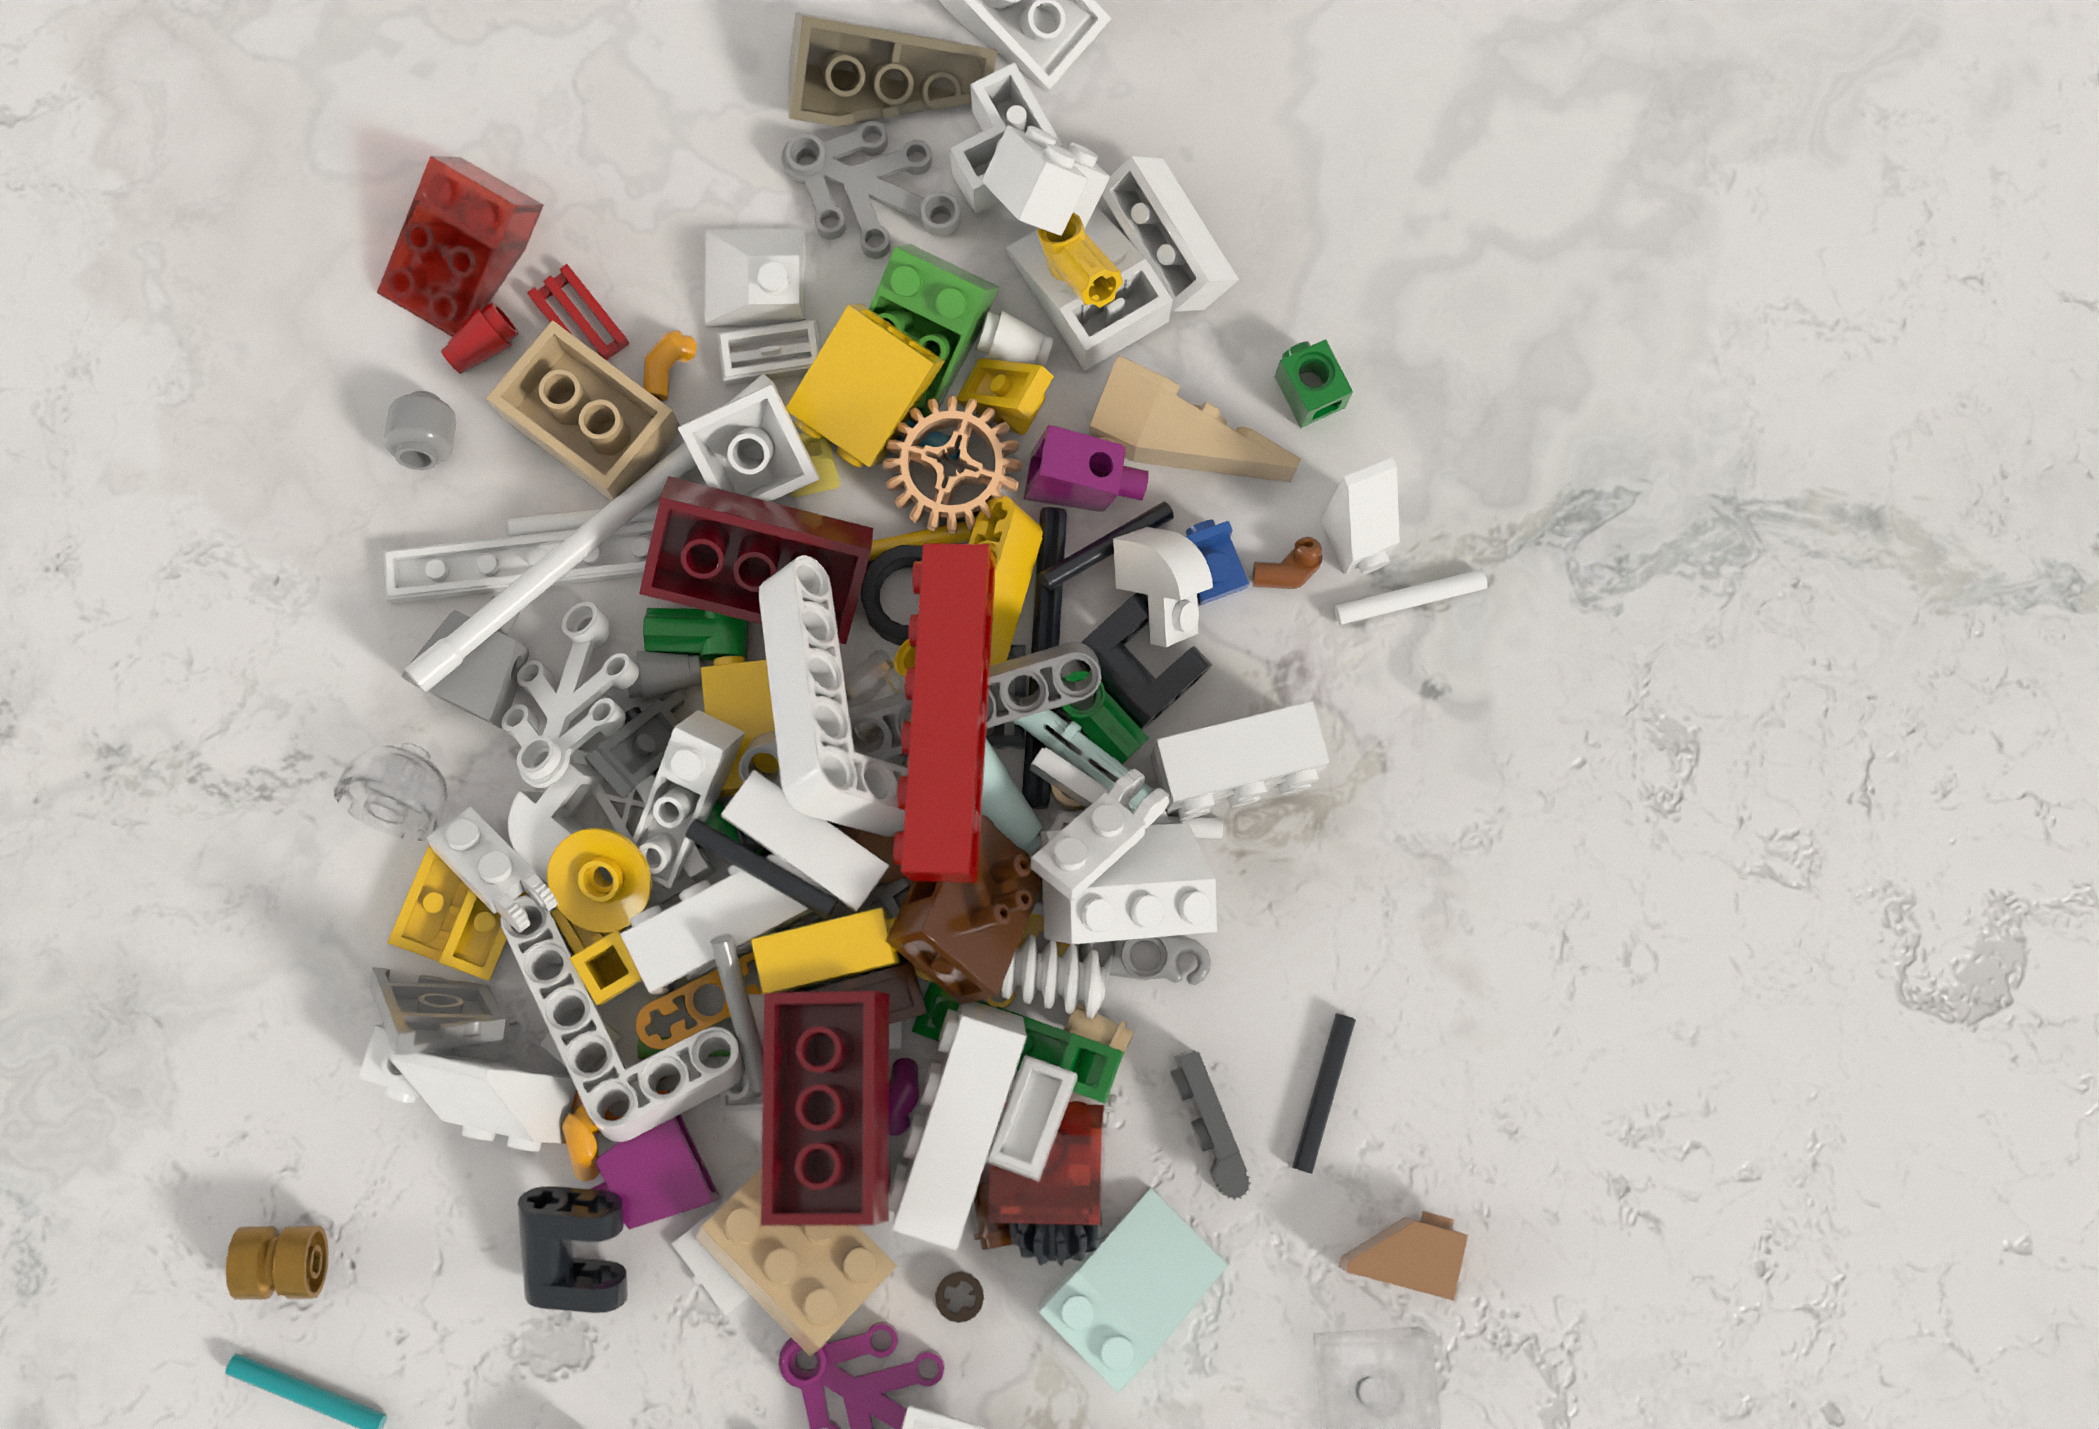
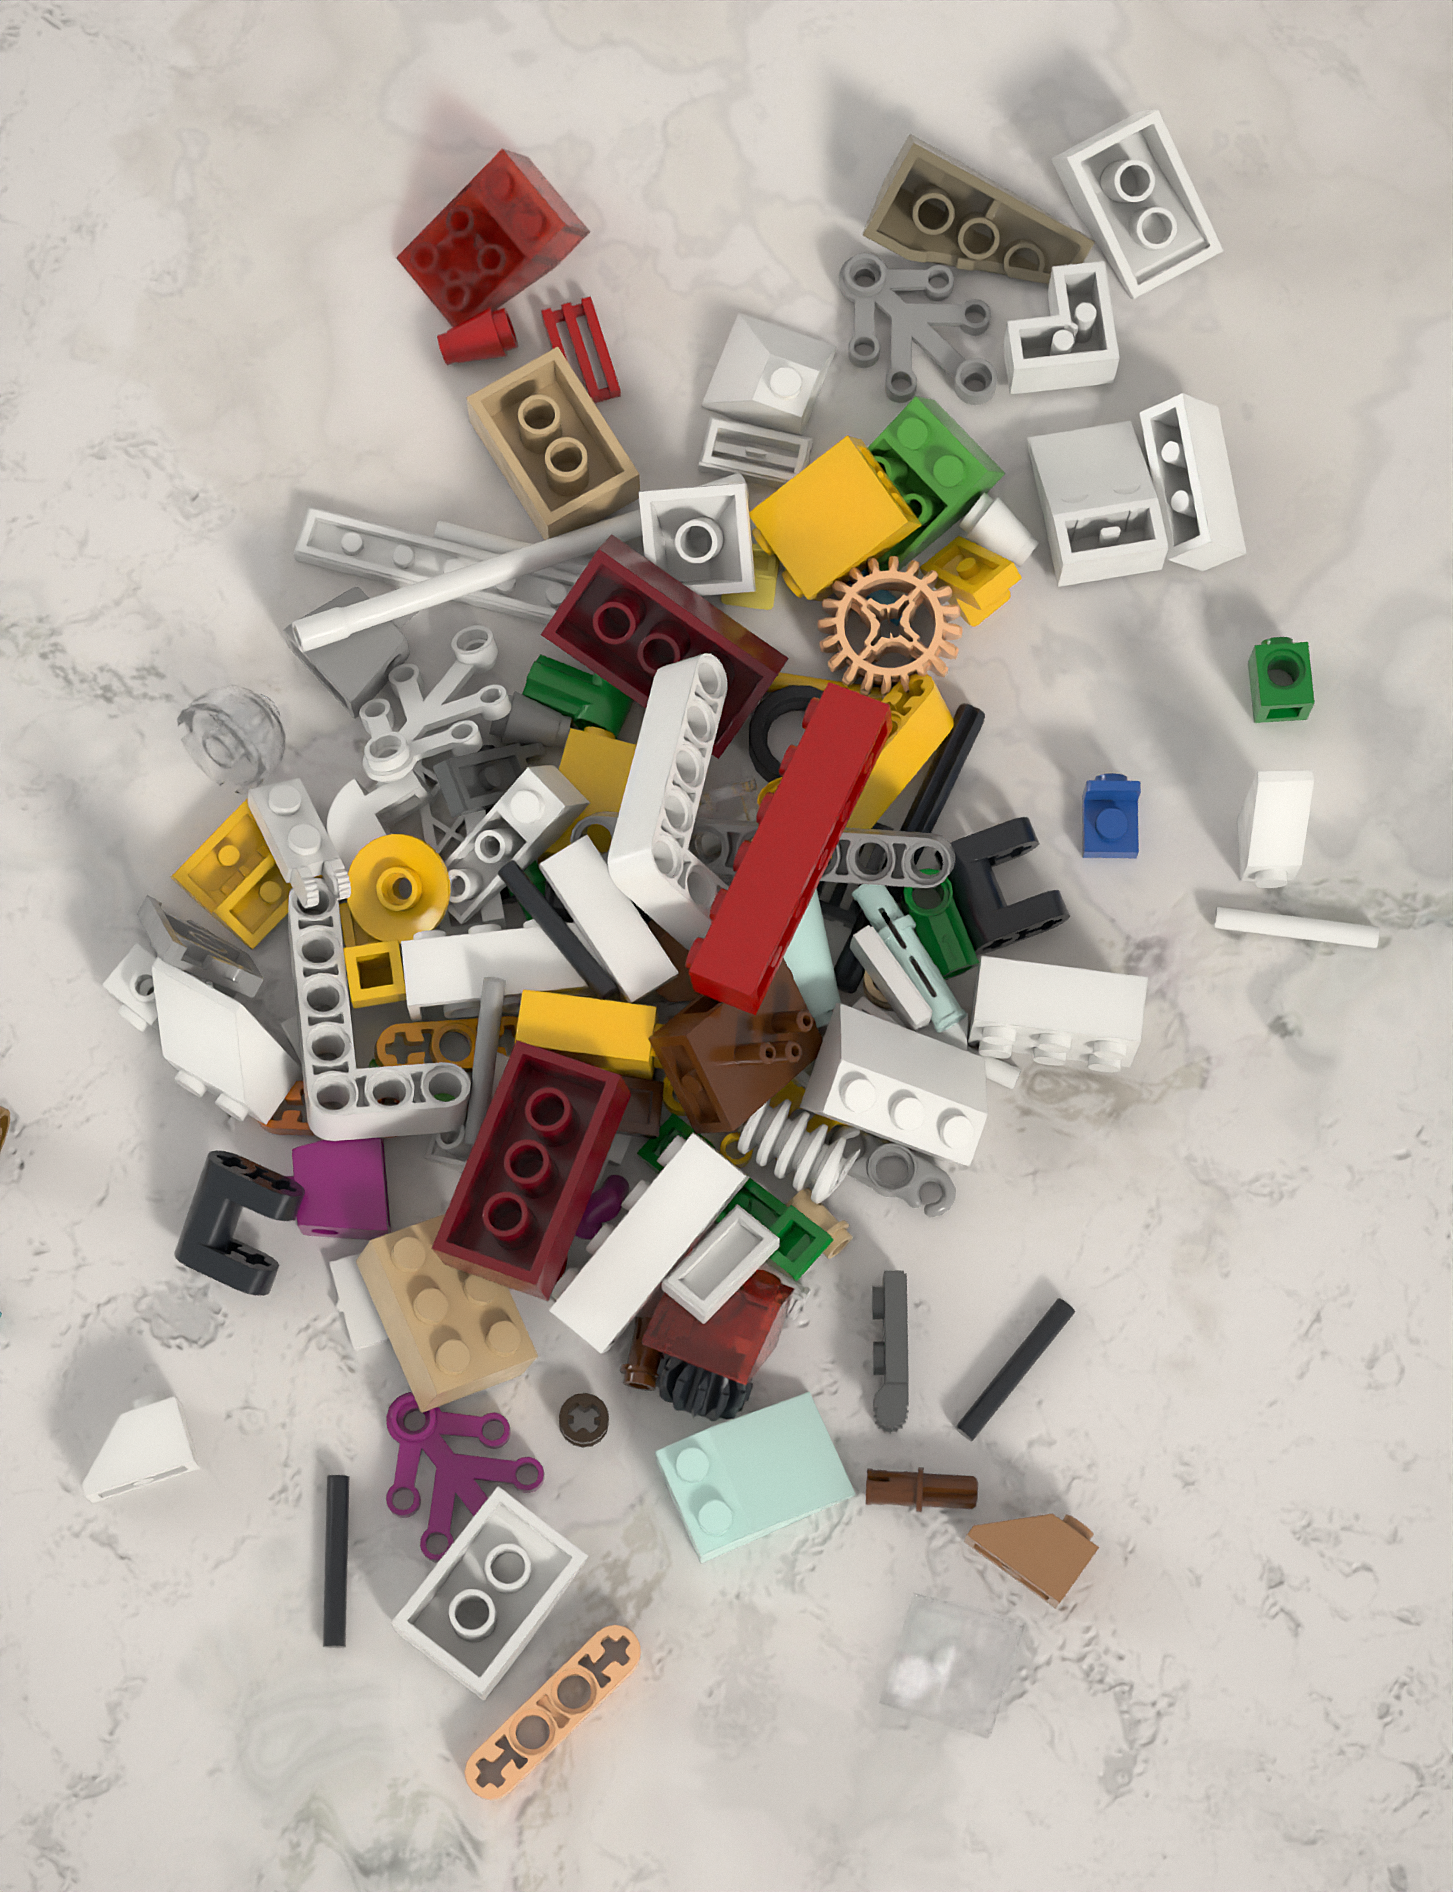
camera: 25 degrees right, 5 degrees down
(420, 430) = (388, 405): light grey head -> none
(581, 1144) = (284, 1132): light orange arm -> none
(661, 358) = (646, 421): light orange arm -> none
(1044, 180) = (1087, 387): white brick -> none
(1080, 263) = (1089, 473): yellow piece -> none
(1081, 471) = (1014, 681): magenta torso -> none
(1098, 836) = (890, 1023): white hinge -> none
(1102, 548) = (1011, 762): black bar -> none
(1165, 430) = (1099, 661): tan wedge -> none
(1170, 573) = (1061, 813): white brick -> none
(1285, 1239) = (920, 1489): none -> reddish brown axle
(1293, 570) = (1188, 857): dark orange arm -> none

